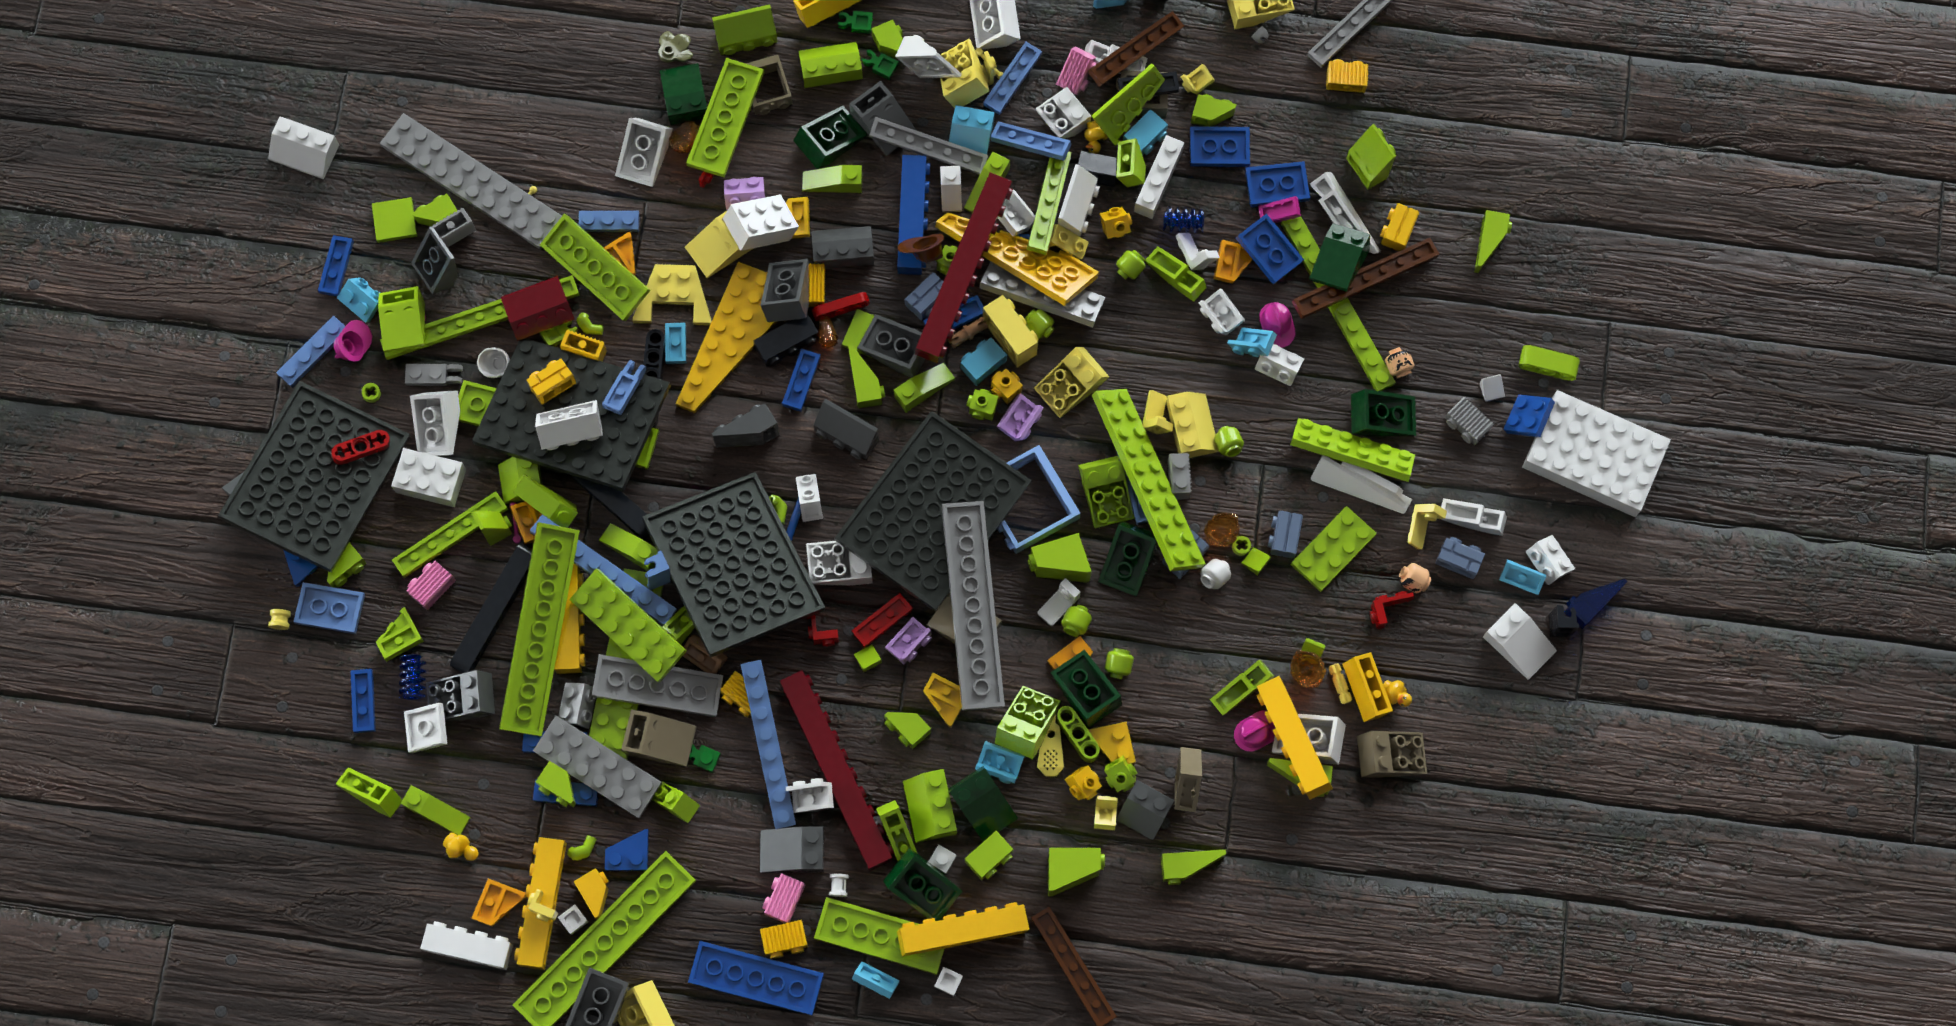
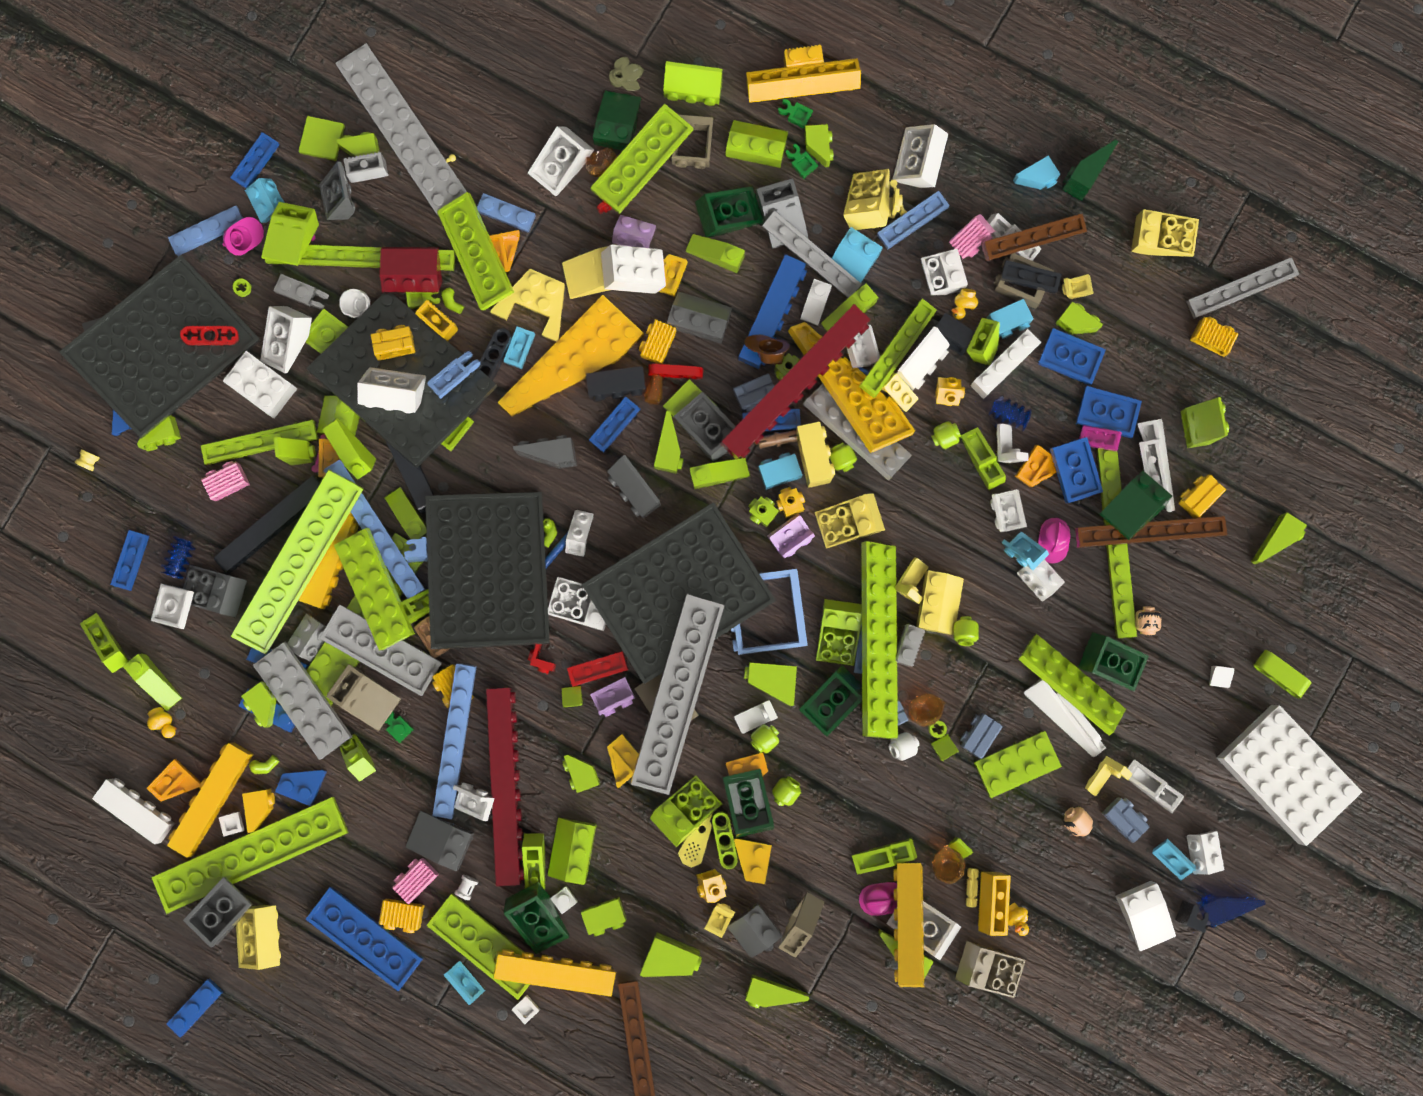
camera: 25 degrees right, 10 degrees up
(302, 147) = (266, 41): white slope -> none
(329, 608) = (132, 466): medium blue plate -> none
(399, 636) = (182, 516): lime wing -> none
(543, 912) = (203, 811): light yellow bracket -> none
(786, 291) = (632, 340): dark grey slope -> none
(924, 59) = (840, 173): white slope -> none
(983, 803) = (616, 867): dark green slope -> none
(1000, 762) = (646, 837): medium azure bracket -> none
(1030, 140) = (904, 286): medium blue plate -> none
(1117, 768) = (746, 891): lime brick -> none
(1127, 103) = (994, 291): lime wing -> none
(1261, 32) = (1152, 265): light grey hinge -> none
(1378, 613) = (1031, 840): red bracket -> none
(1468, 421) = (1187, 699): light grey brick -> none
(1529, 415) = (1243, 717): blue plate -> none

